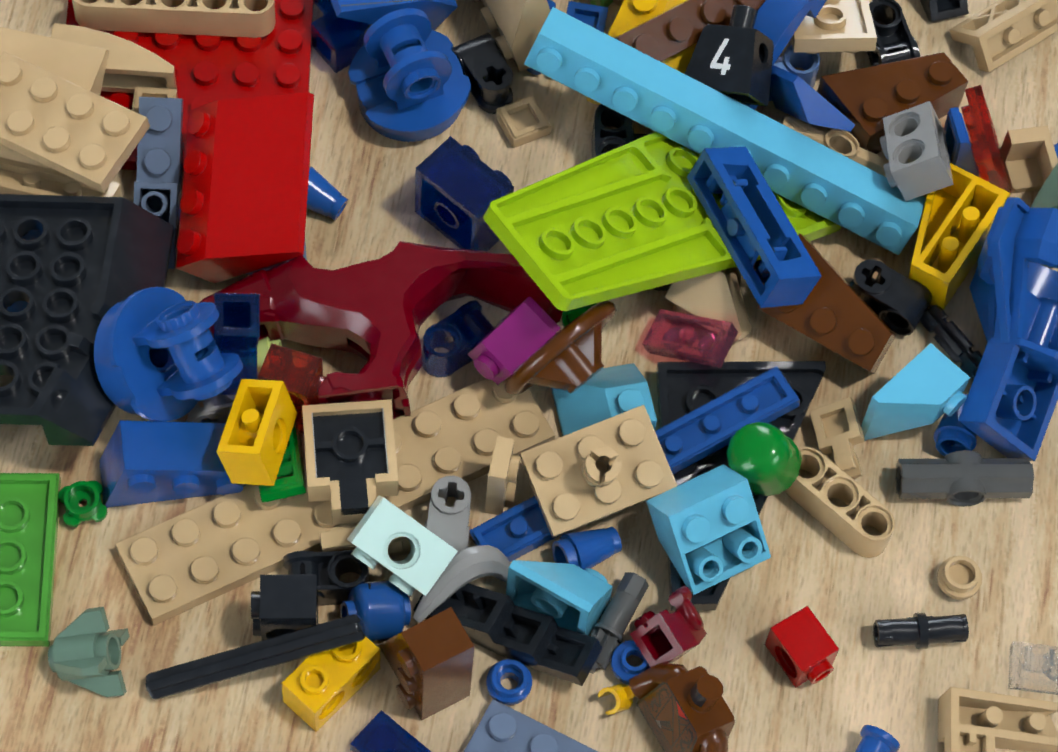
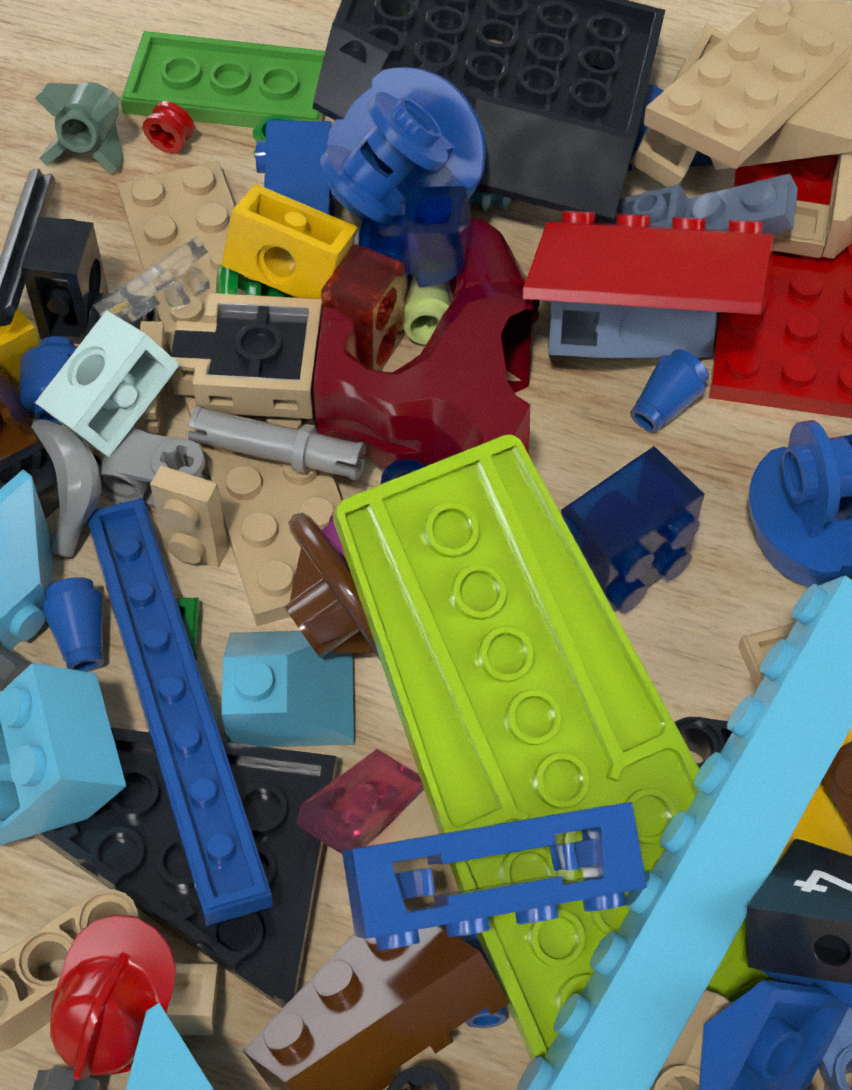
camera: 105 degrees right, 5 degrees down
(81, 589) = (168, 127): none -> red bush
(291, 538) = (167, 273): none -> clear plate
(424, 415) = (298, 447): none -> light grey pin
(597, 471) = (161, 629): tan plate -> none
(764, 458) = (111, 824): green helmet -> none
(861, 449) = (103, 993): none -> red piece

